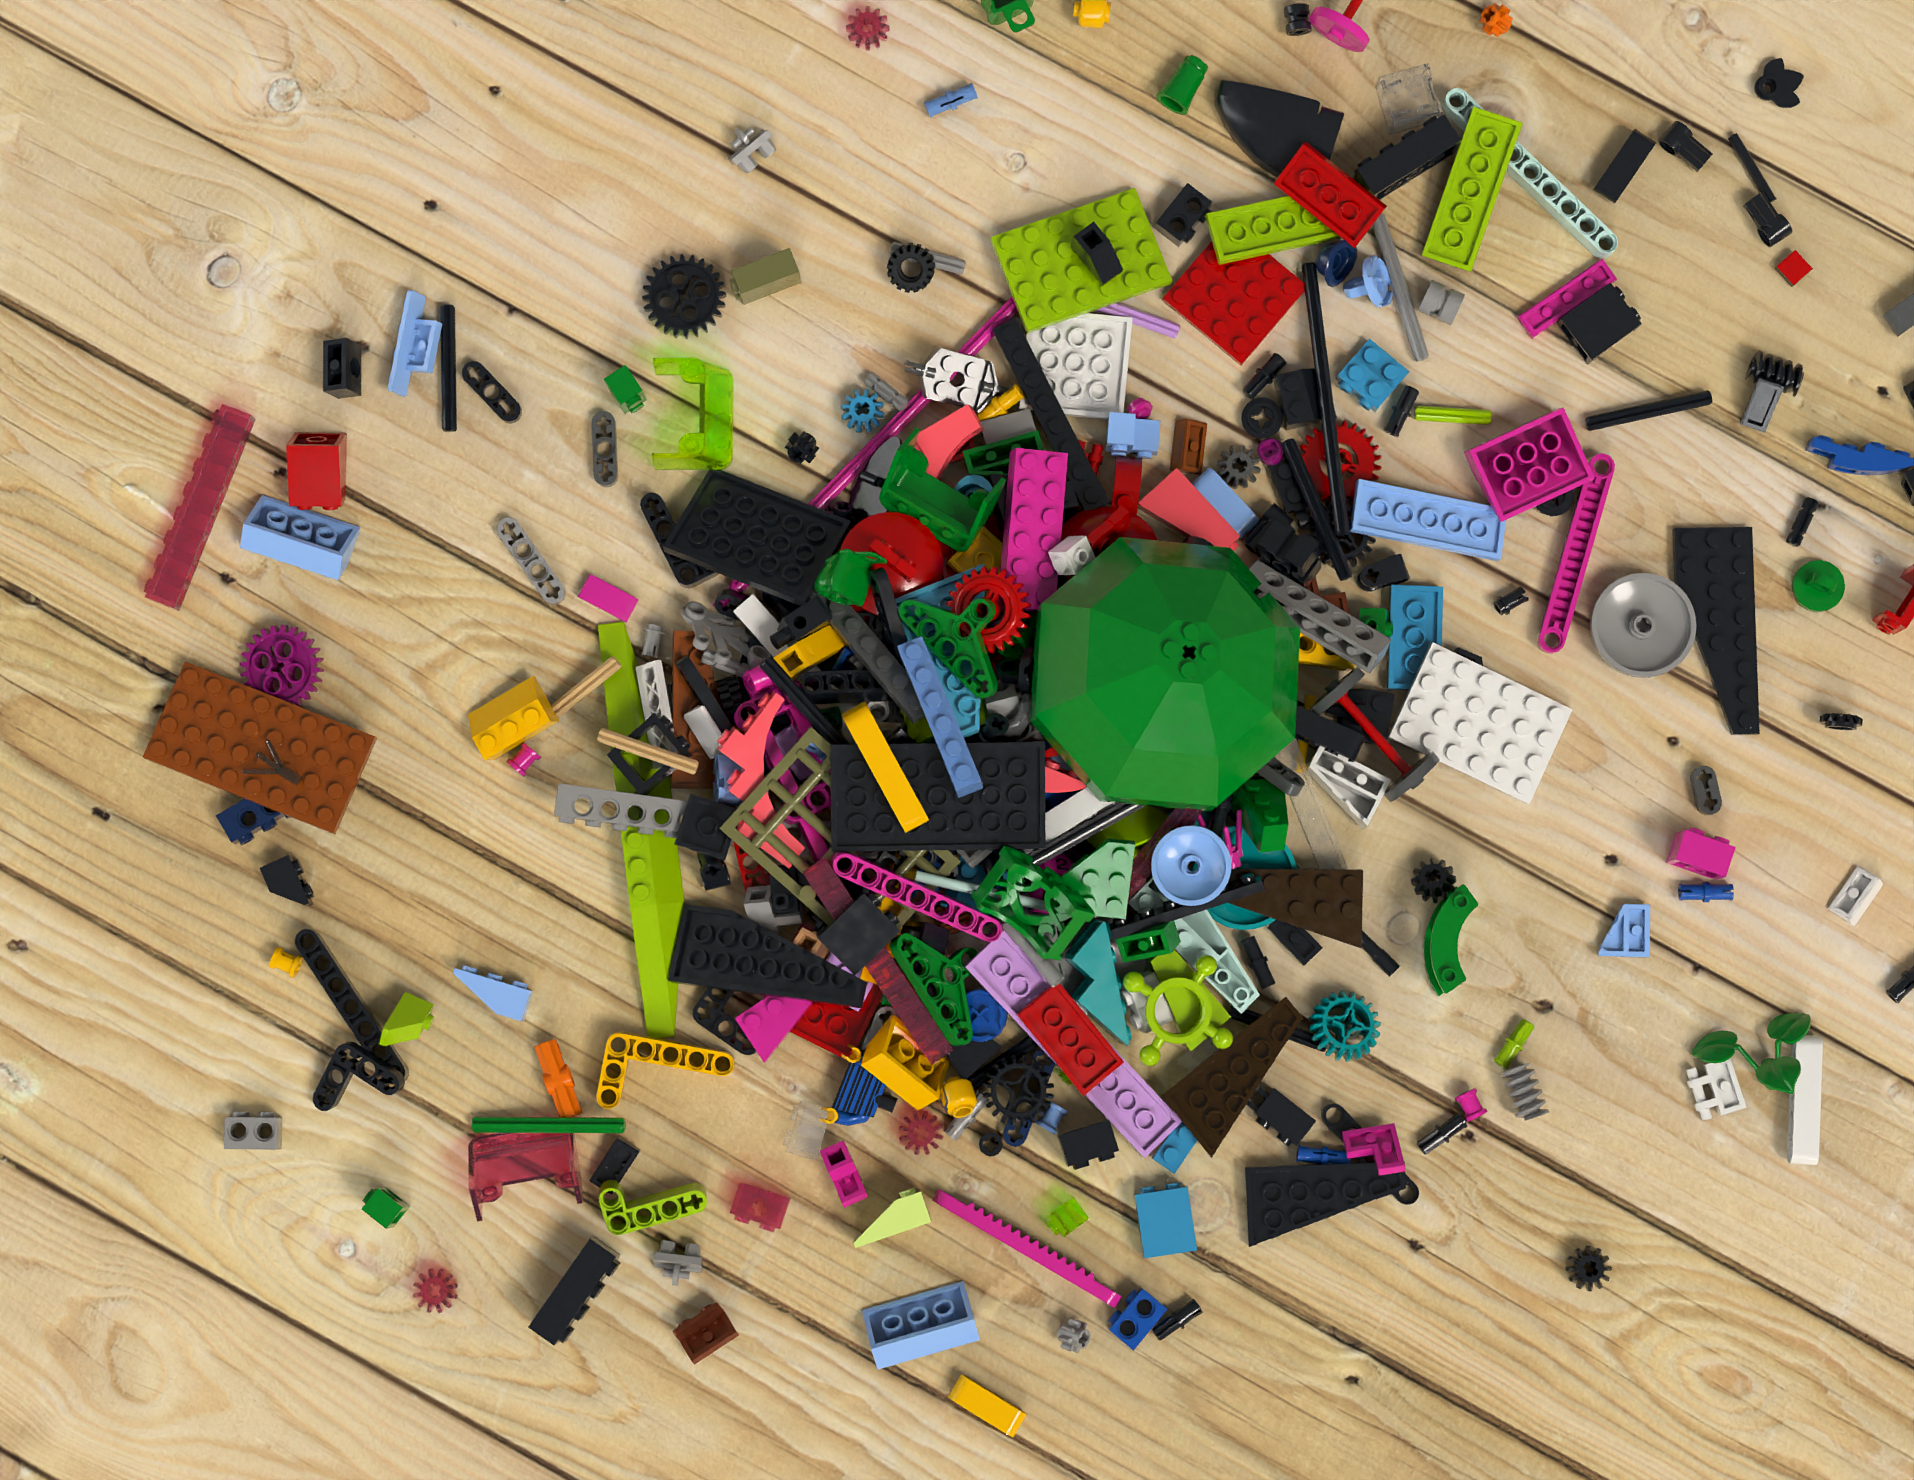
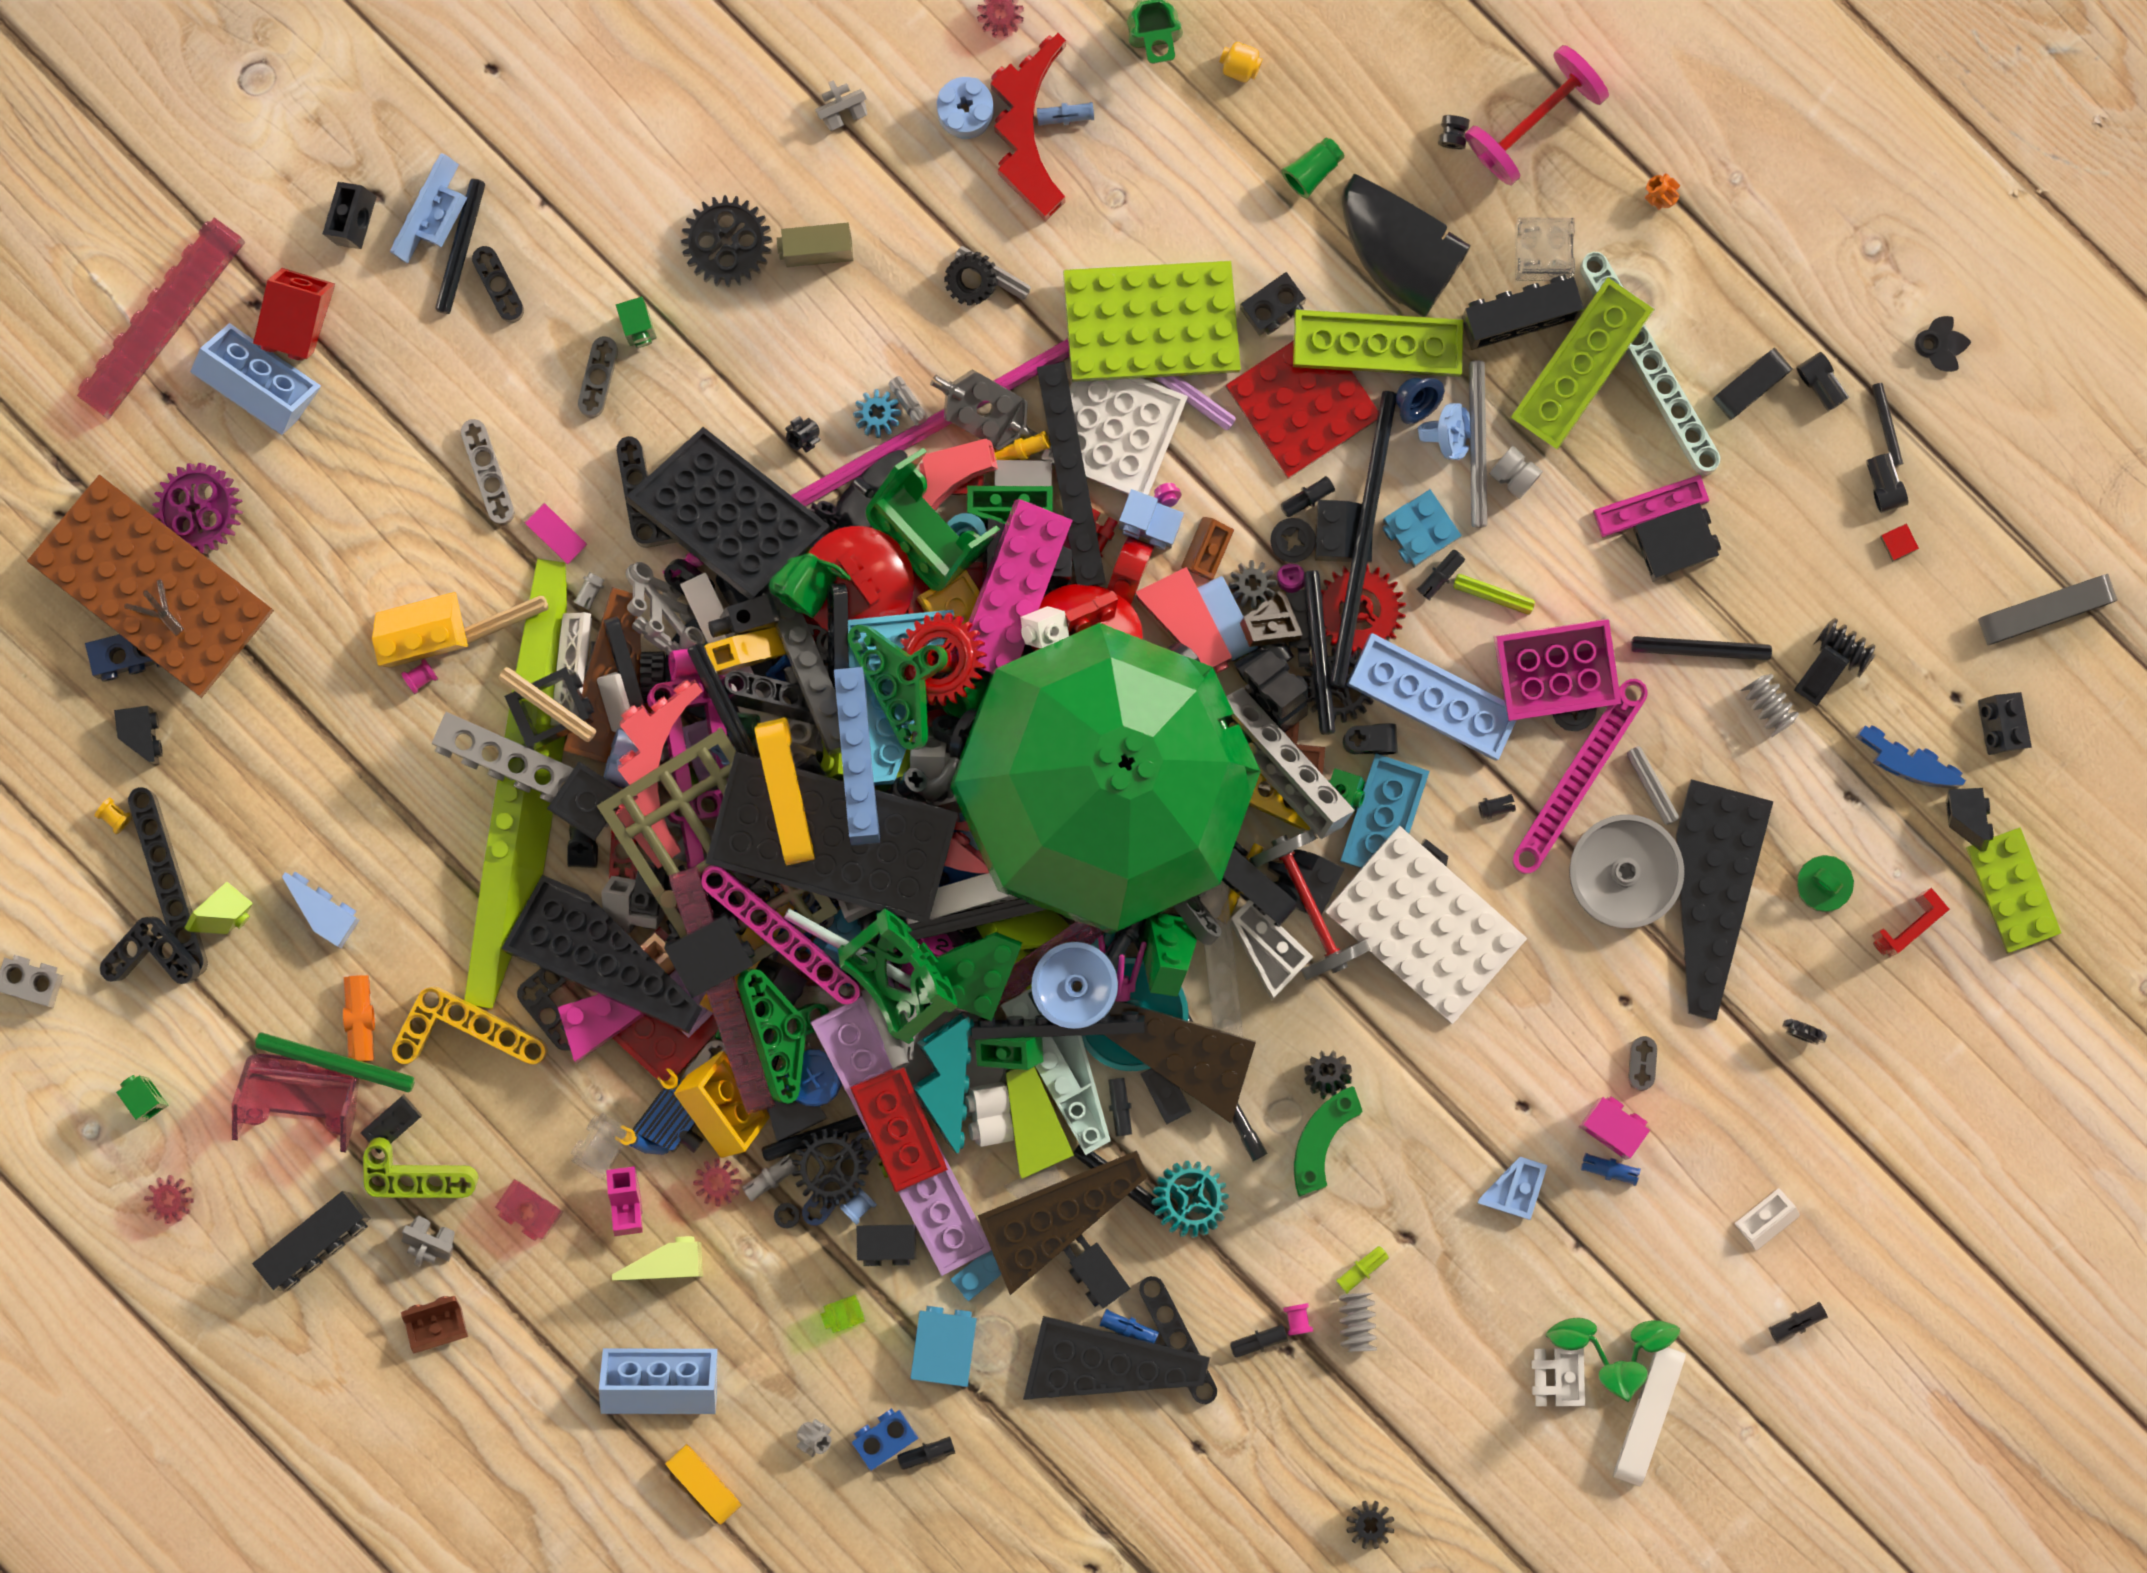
camera: 20 degrees right, 0 degrees up
(714, 443) = (714, 401): clear neon green windscreen -> none
(855, 132) = (976, 96): none -> light blue brick
(929, 159) = (1019, 90): none -> red arch
(958, 1097) = (766, 1156): yellow head -> none
(1029, 1249) = (789, 1330): dark pink gear -> none
(1097, 253) = (1167, 319): black slope -> none
(1221, 1037) = (1055, 1172): lime piece -> none
(1267, 495) = (1271, 623): none -> wing
(1330, 194) = (1430, 327): red plate -> none
(1377, 1141) = (1189, 1329): dark pink plate -> none
(1641, 543) = (1652, 785): none -> light grey axle
(1725, 441) = (1770, 703): none -> light grey piece
(1802, 522) = (1828, 811): black axle -> none

